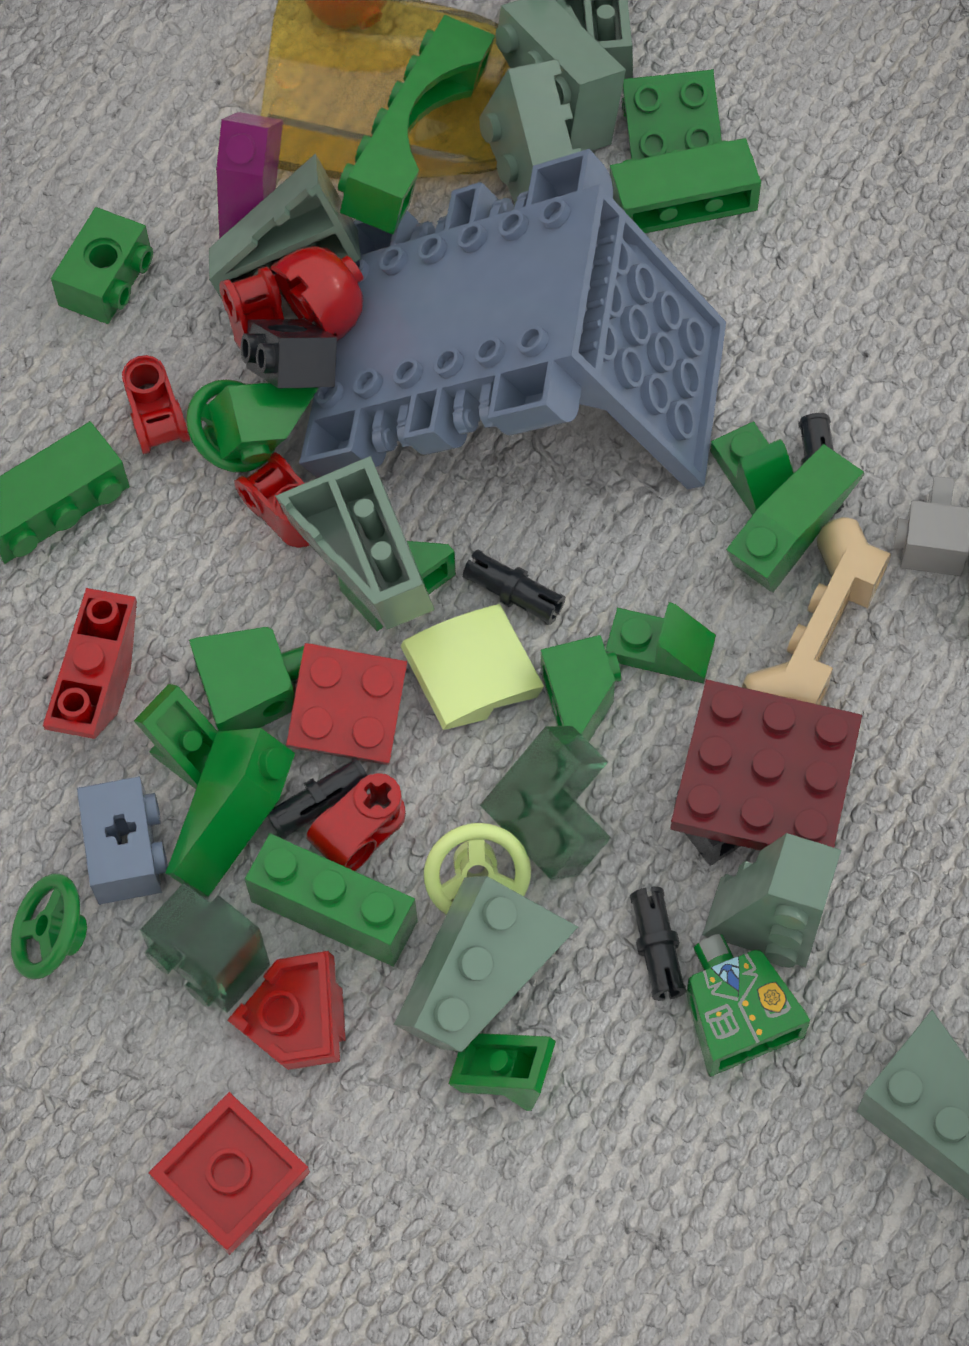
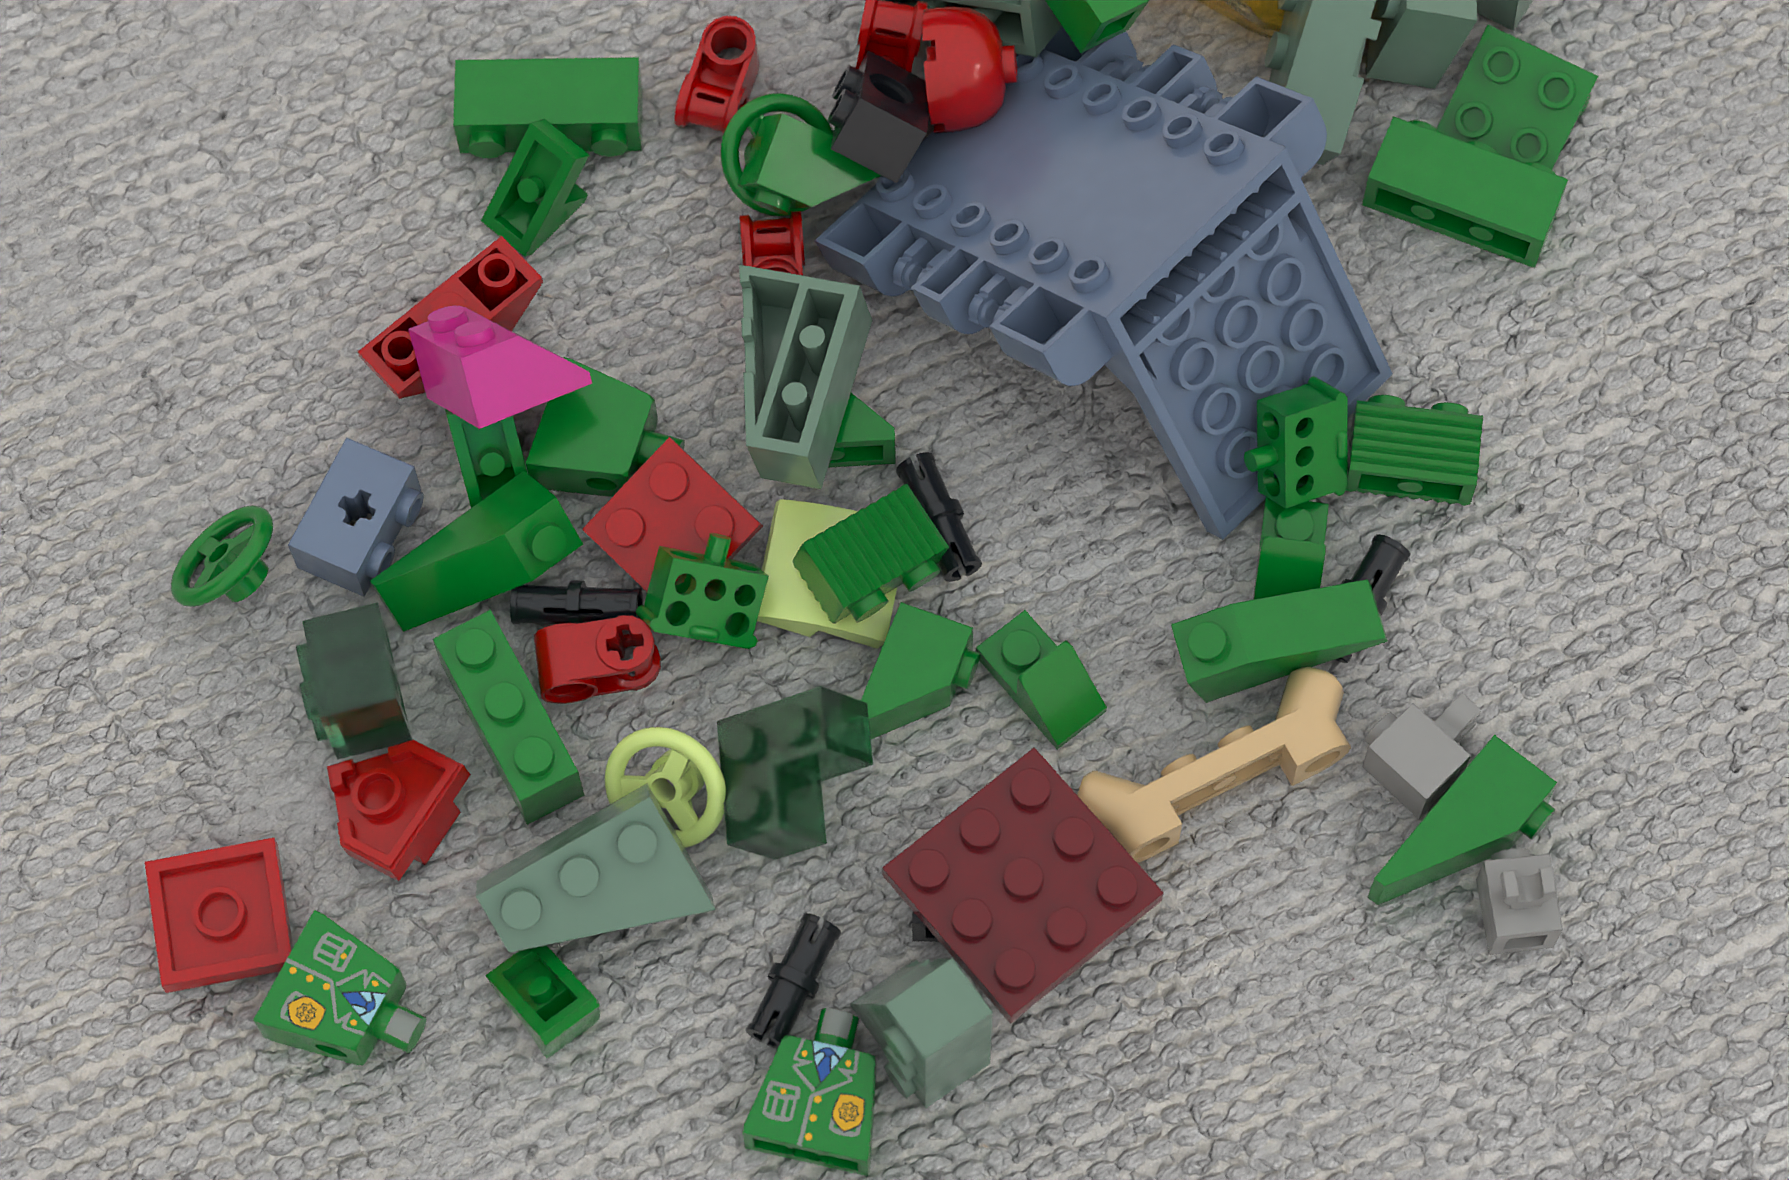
camera: 35 degrees right, 5 degrees up
(81, 545) = (537, 188): none -> green slope
(148, 672) = (487, 369): none -> dark pink slope
(359, 1169) = (337, 997): none -> green torso
(406, 730) = (701, 611): none -> green piece
(496, 632) = (871, 555): none -> green brick
(716, 389) = (1303, 445): none -> green piece
(780, 356) = (1414, 450): none -> green brick

